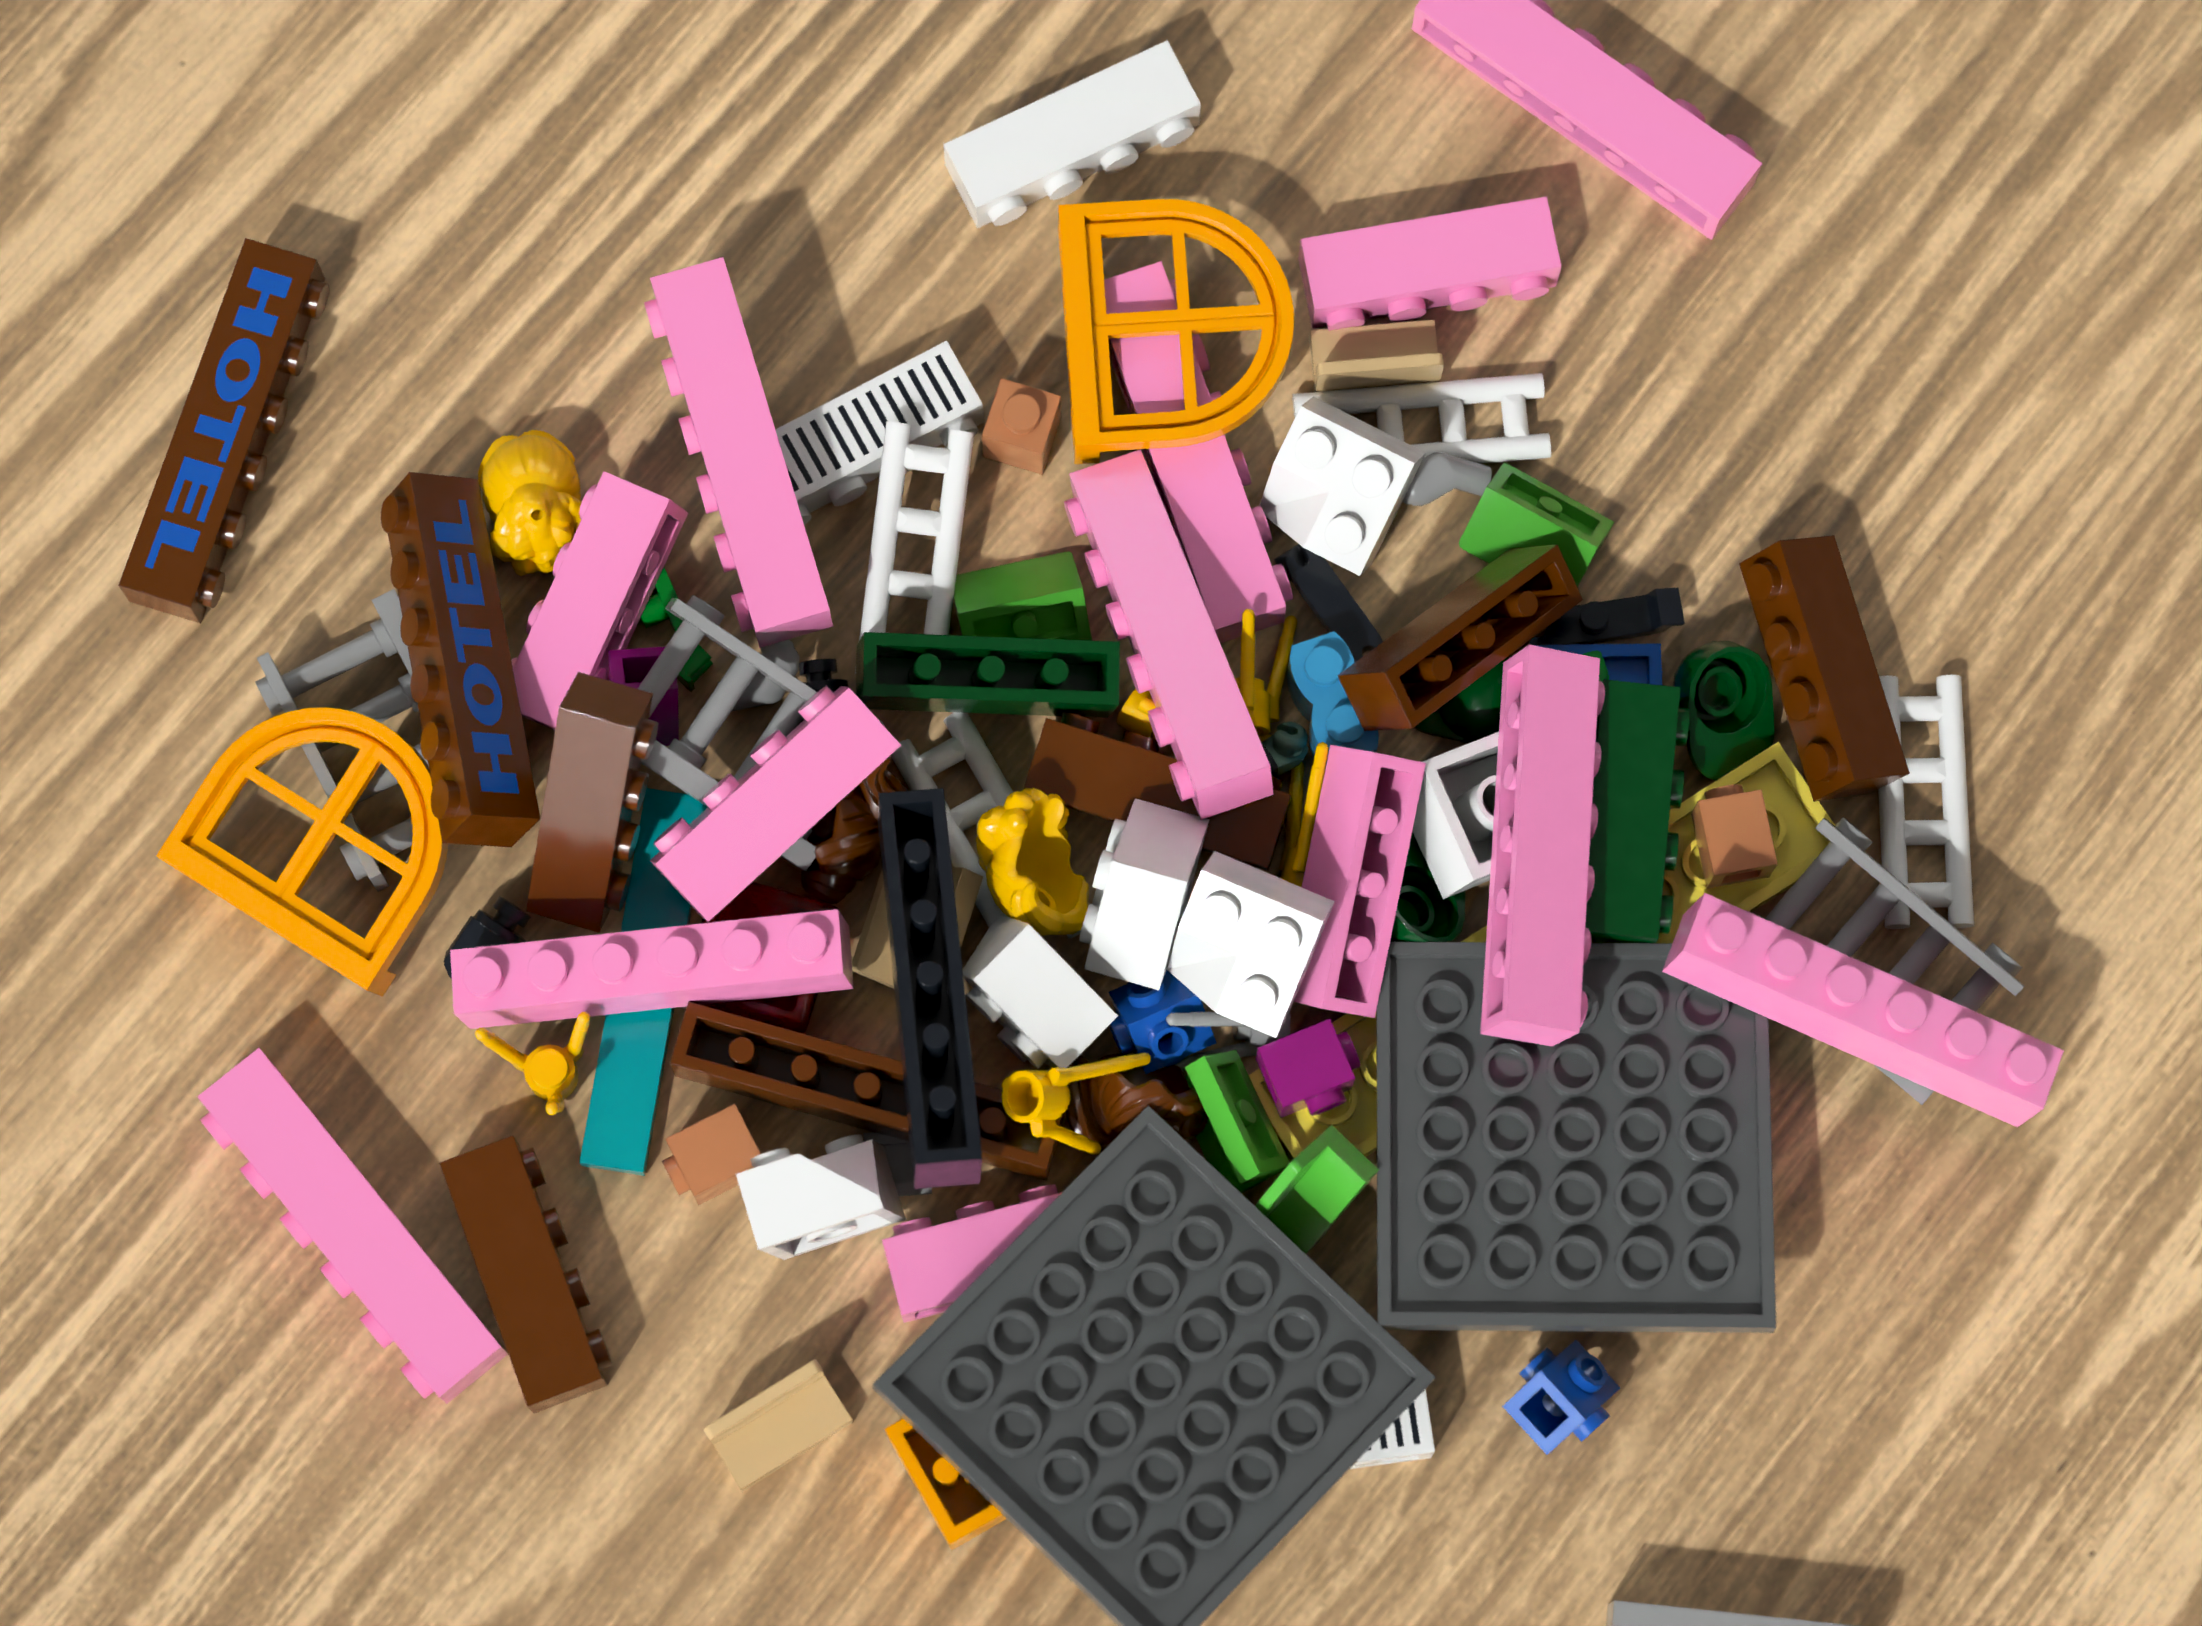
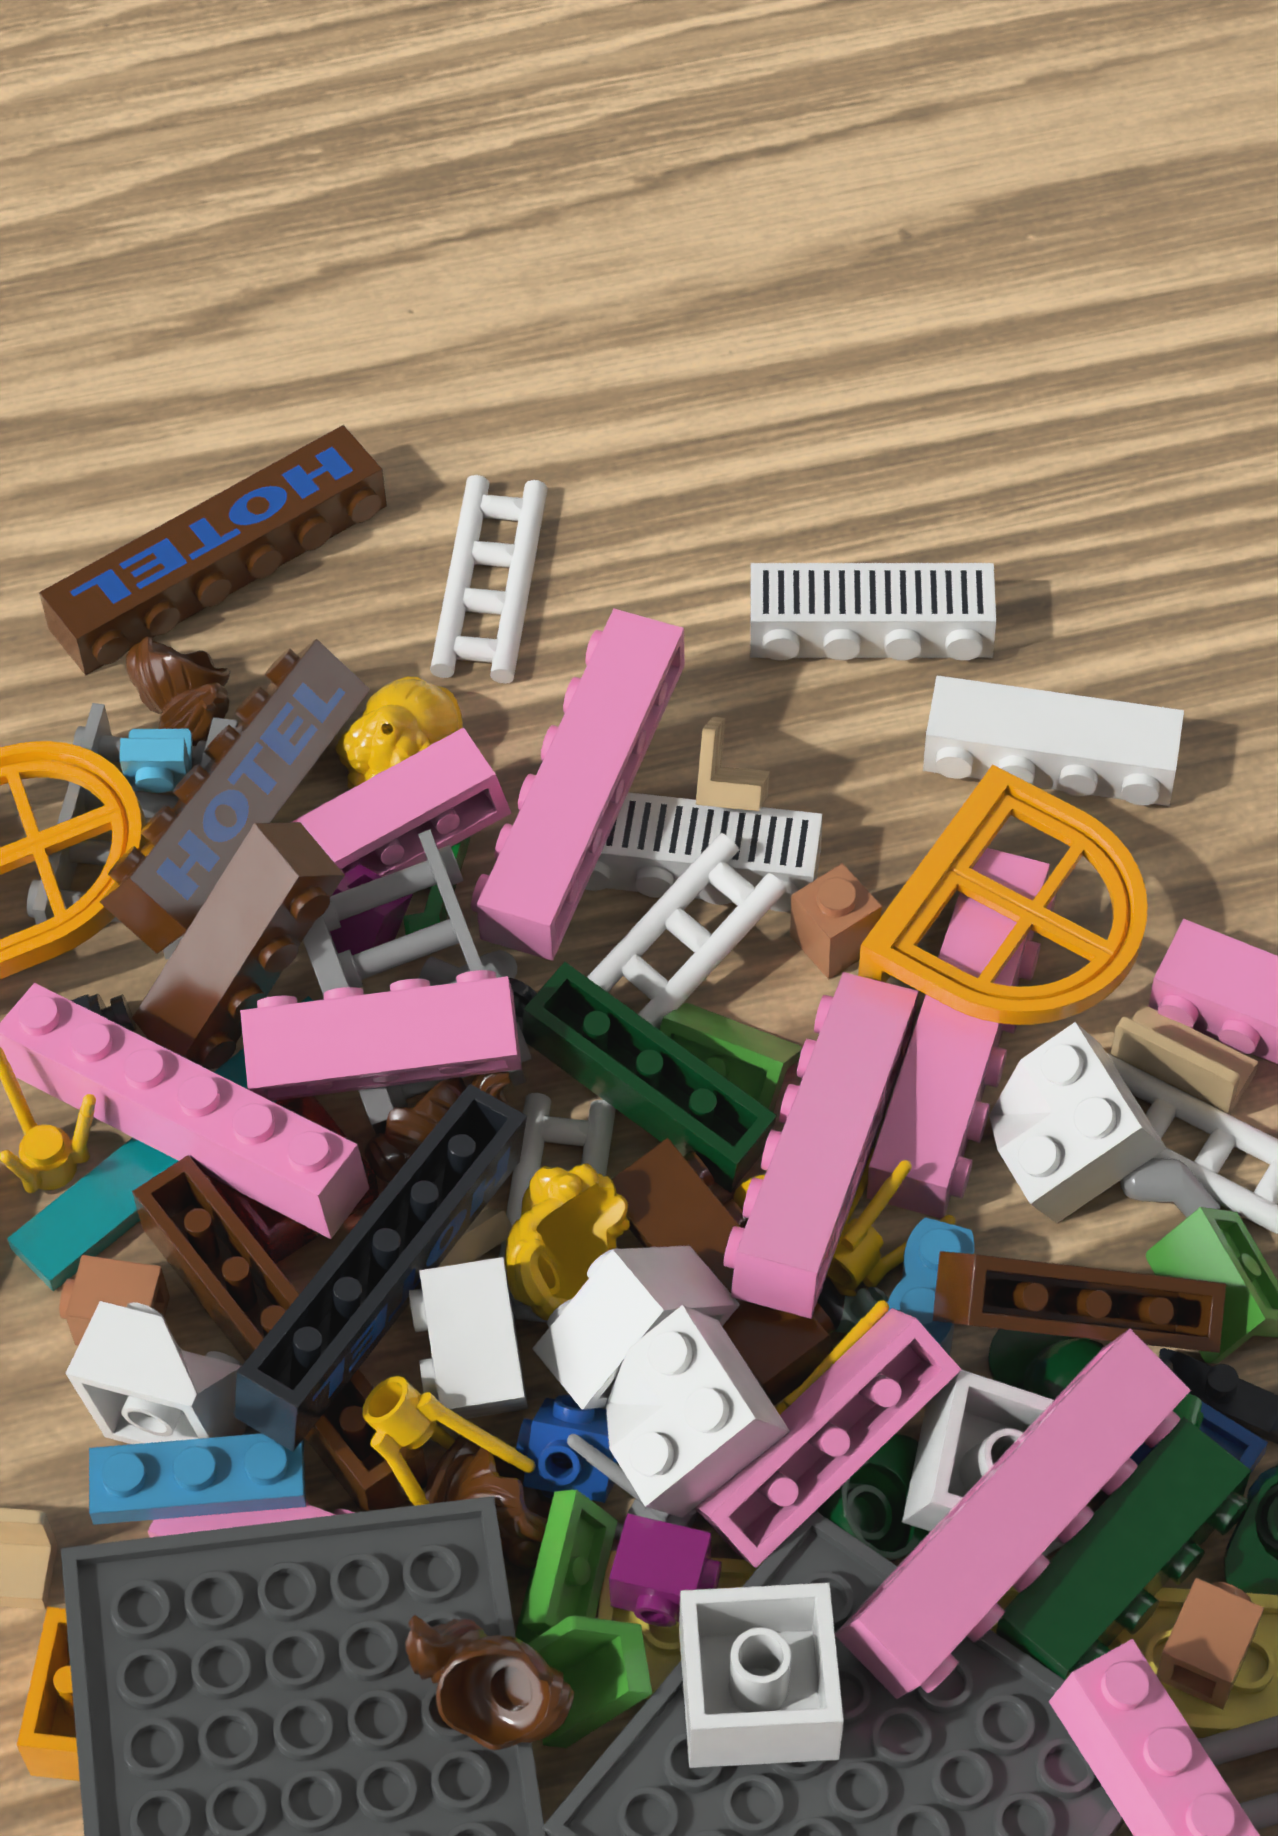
camera: 40 degrees right, 20 degrees down
(309, 584) = (179, 686): none -> reddish brown hair
(364, 673) = (156, 758): none -> medium azure bracket
(469, 330) = (509, 603): none -> white bar
(833, 110) = (872, 610): none -> white brick
(847, 359) = (727, 785): none -> tan panel
(905, 1253) = (194, 1478): none -> dark azure plate
(1271, 1254) = (489, 1684): none -> reddish brown hair
(1329, 599) = (993, 1209): black piece -> none
(1457, 1106) = (760, 1675): none -> white brick

